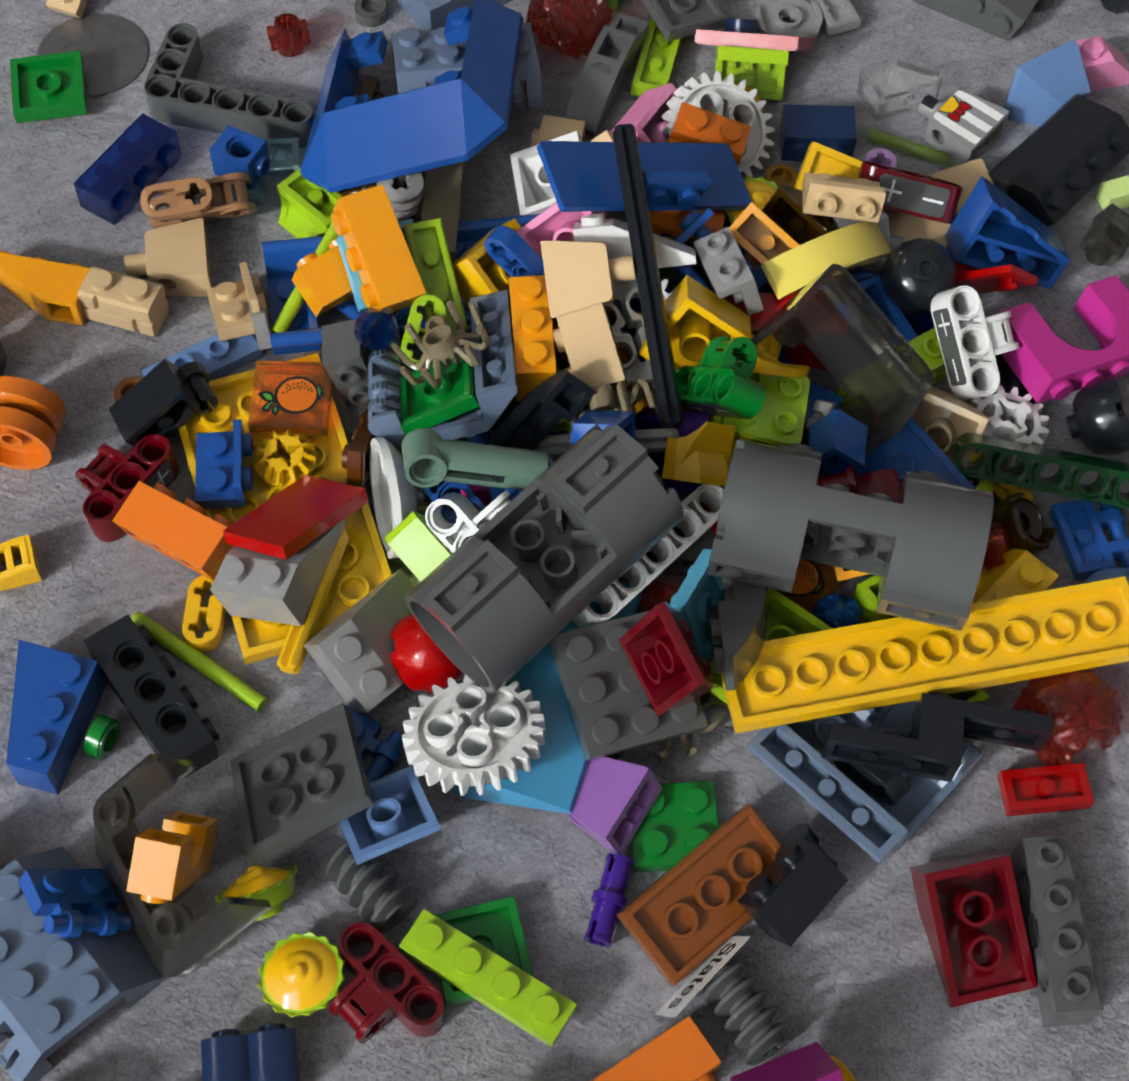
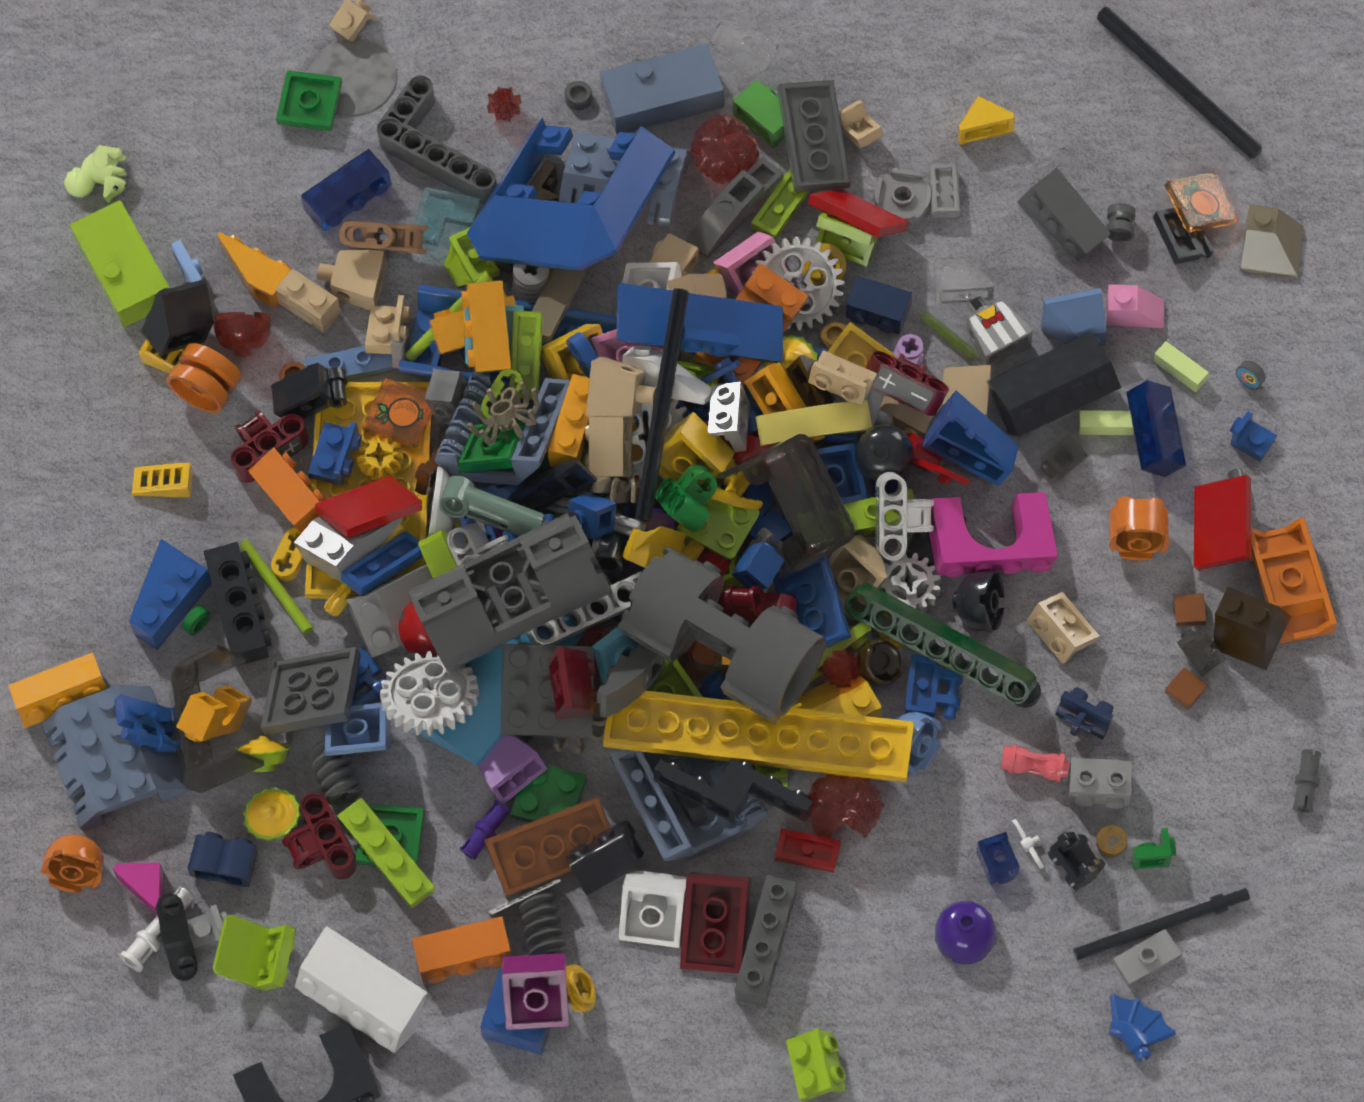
camera: 25 degrees right, 5 degrees up
(48, 355) = (242, 331): none -> clear red cylinder
(240, 152) = (424, 198): blue brick -> none
(340, 584) = (382, 563): none -> blue plate
(374, 329) = (466, 385): clear blue tile -> none
(741, 25) = (861, 192): dark blue tile -> none
(884, 934) = (652, 908): none -> white slope

